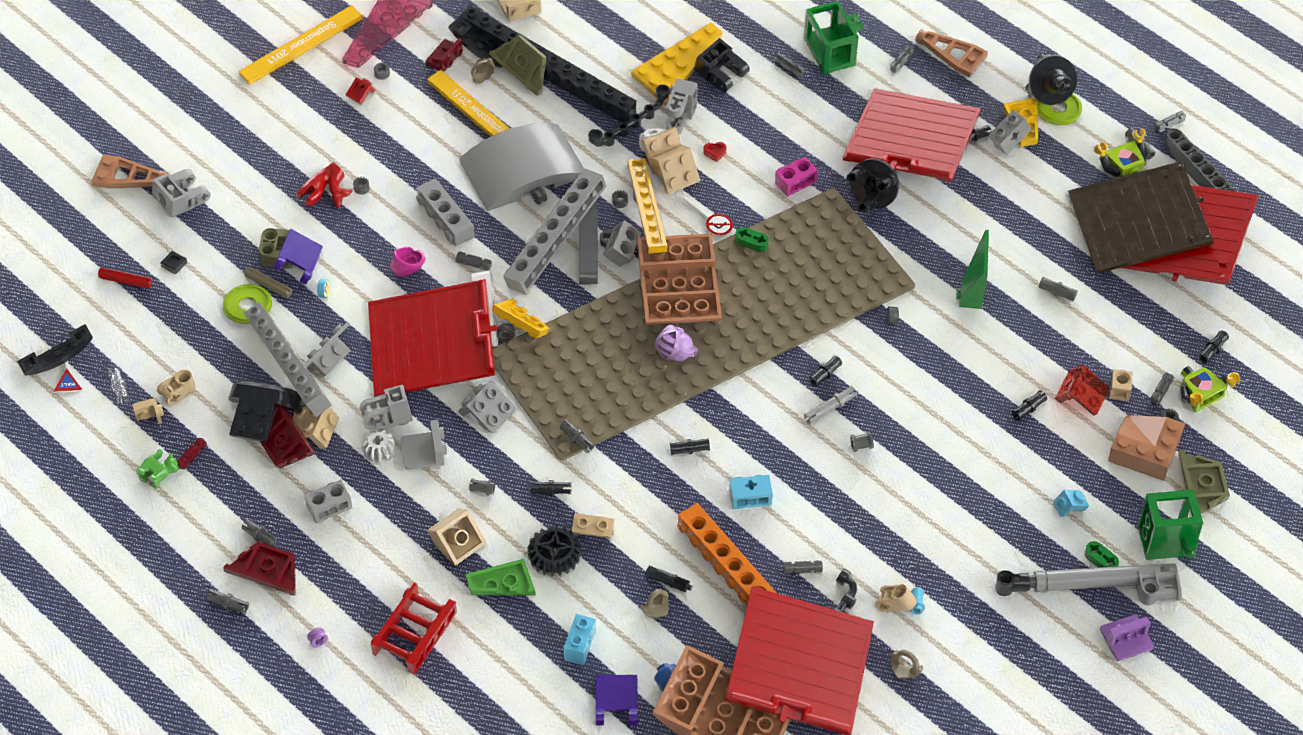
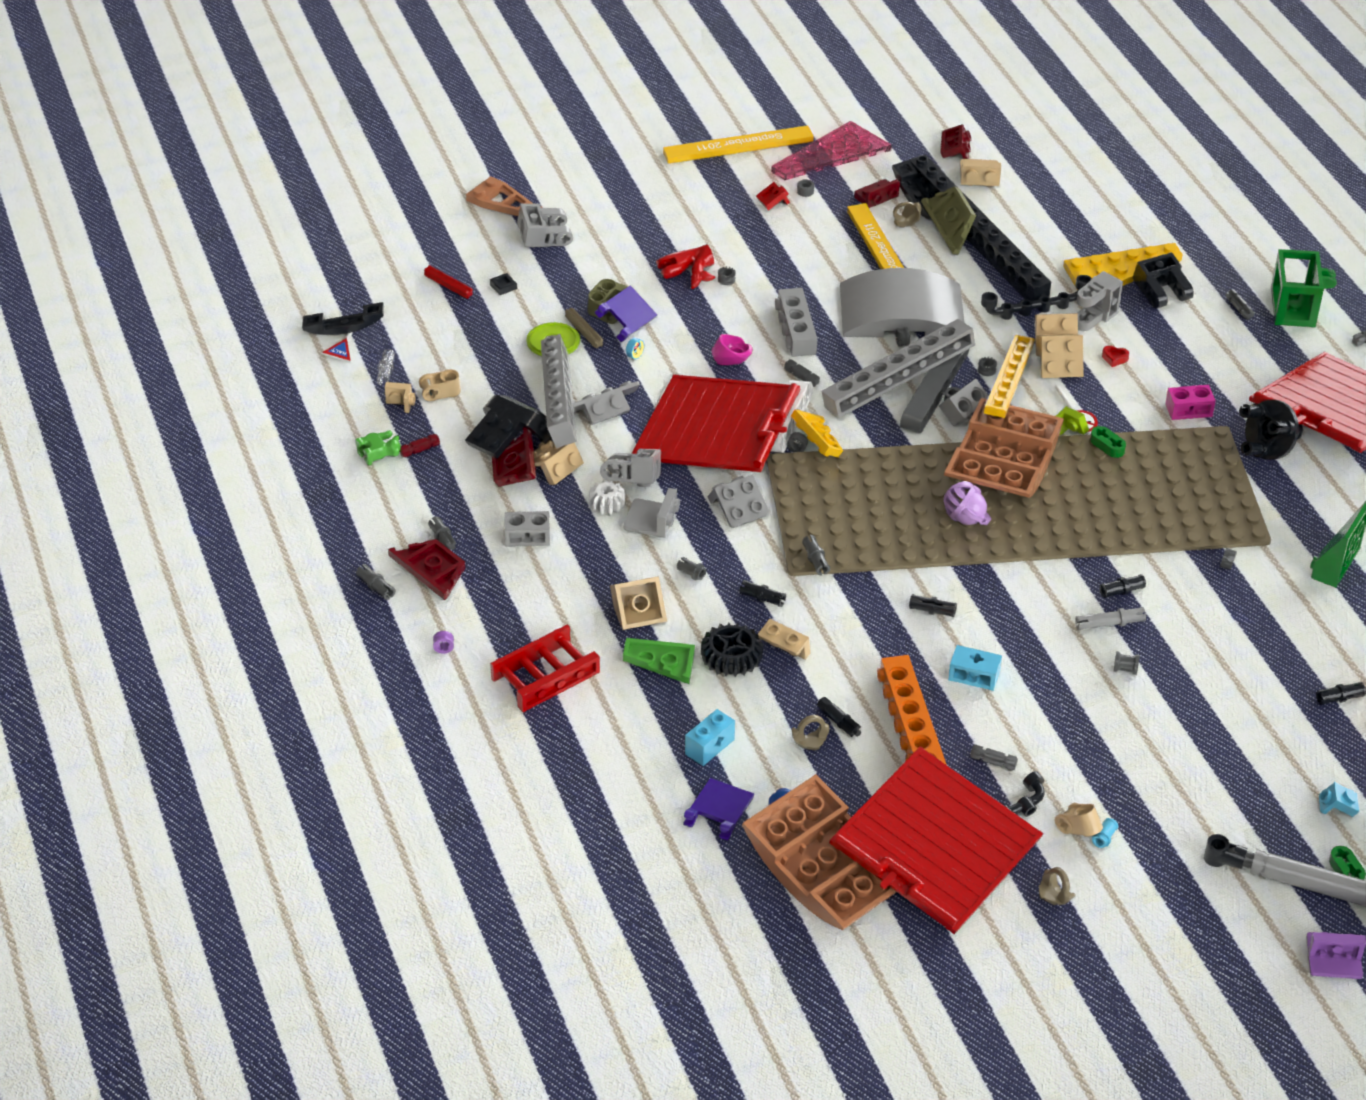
camera: 25 degrees right, 10 degrees down
(718, 229) = (1073, 420): none -> lime bracket

